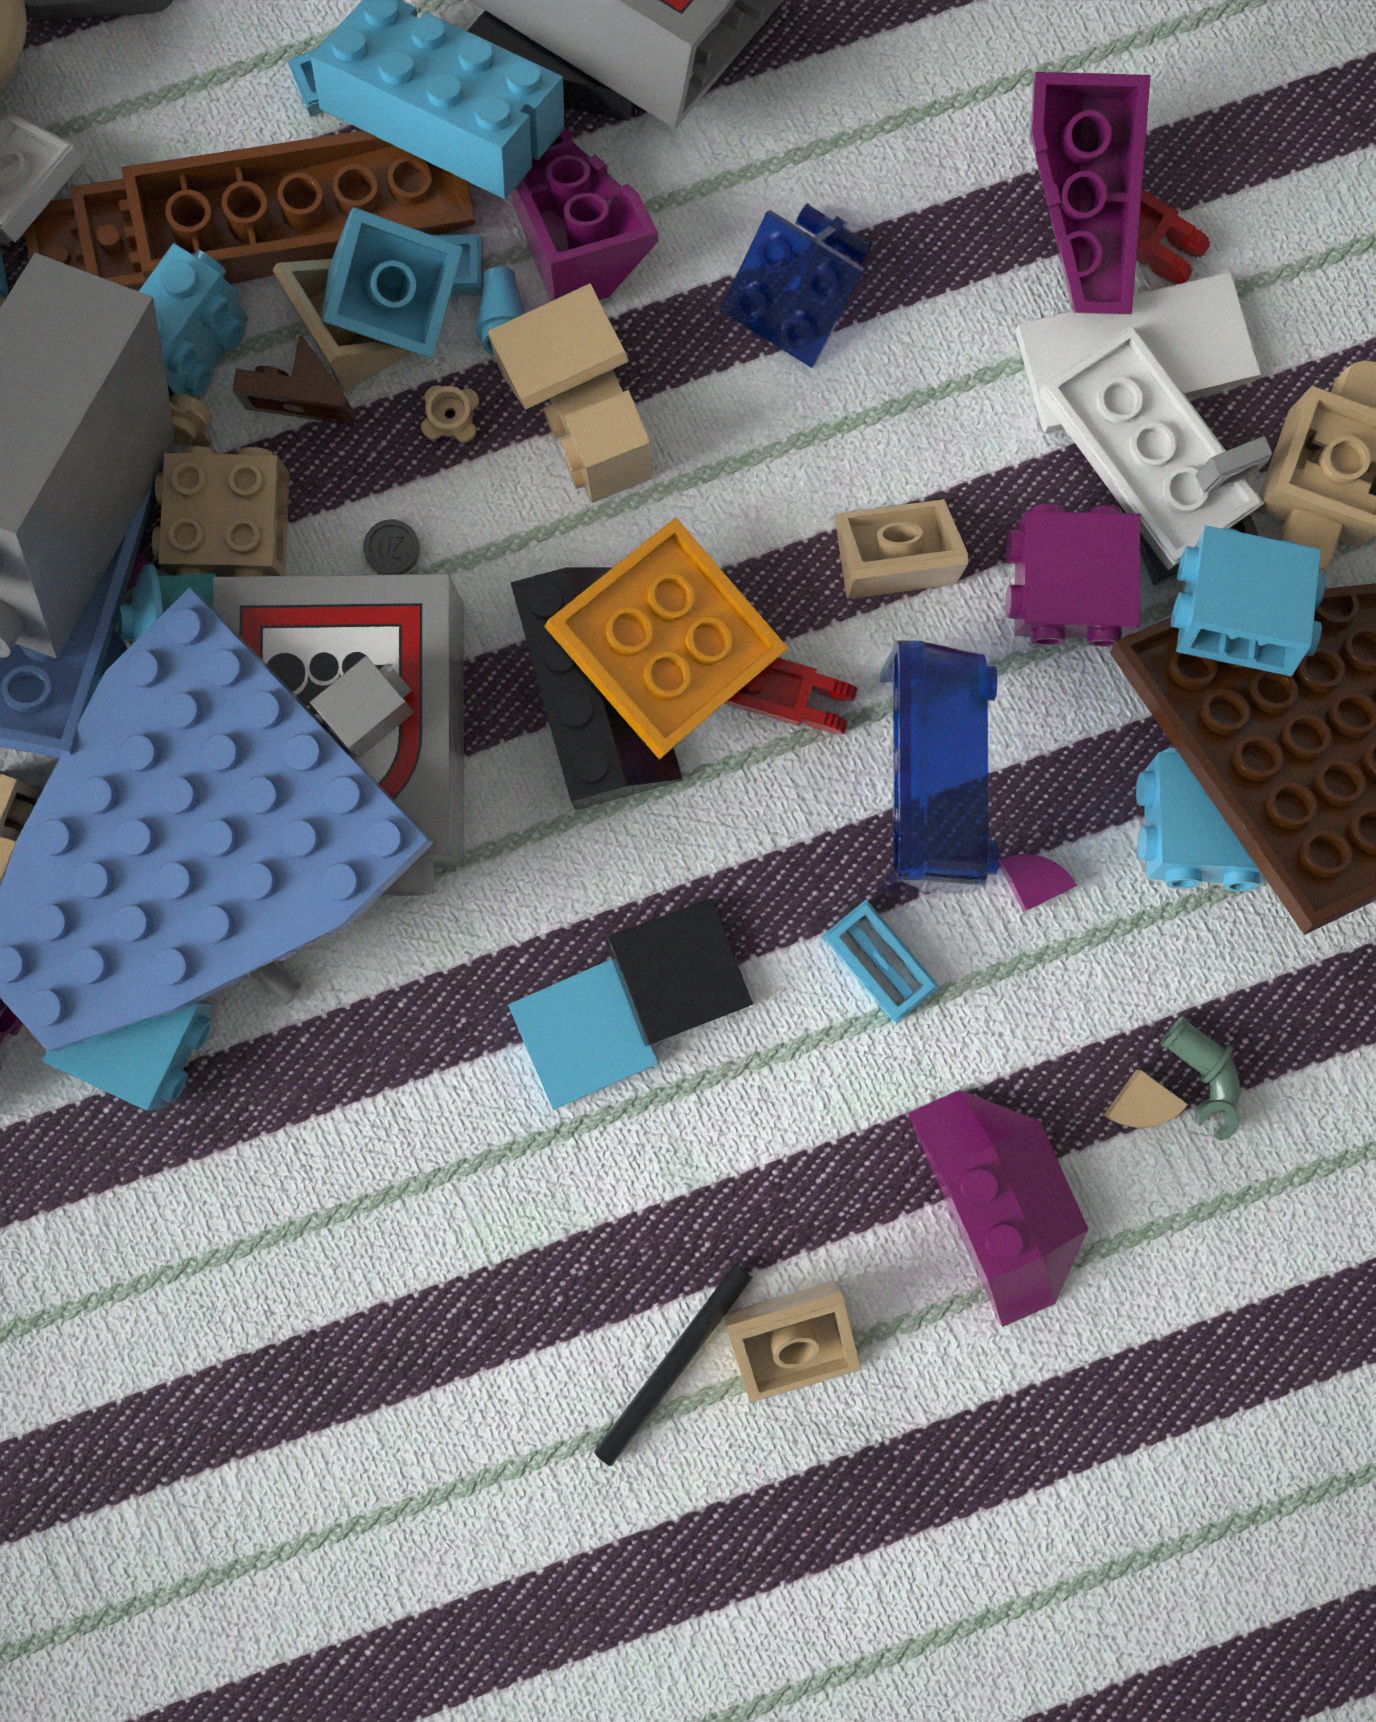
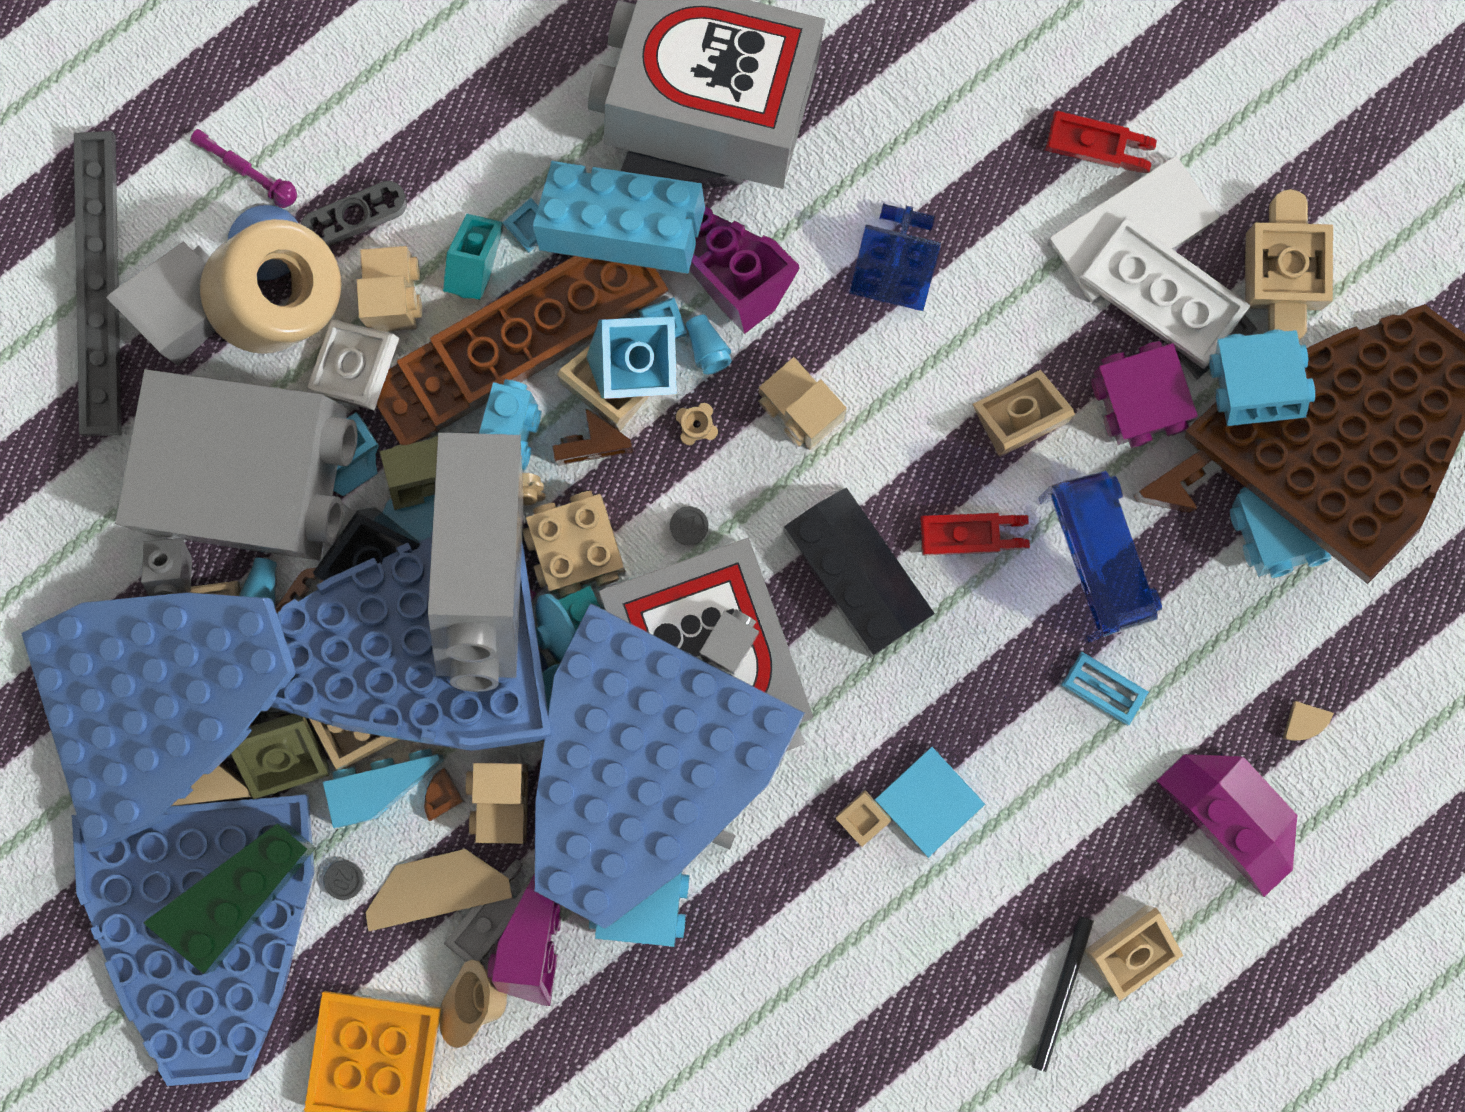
camera: 15 degrees left, 0 degrees up
(93, 91) = (387, 289): none -> tan brick
(225, 89) = (472, 257): none -> teal slope
(482, 1024) = (863, 818): none -> tan plate
(556, 347) = (760, 363): tan slope -> none
(666, 637) = (898, 528): light orange plate -> none
(678, 971) = (977, 740): black tile -> none
(1035, 879) = (1186, 601): magenta tile -> none
(1061, 716) = (1167, 489): none -> reddish brown slope
(1091, 164) = (1064, 124): magenta wedge -> none
(1216, 1067) = (1344, 683): sand green piece -> none
(1234, 465) = (1223, 291): light grey tile -> none

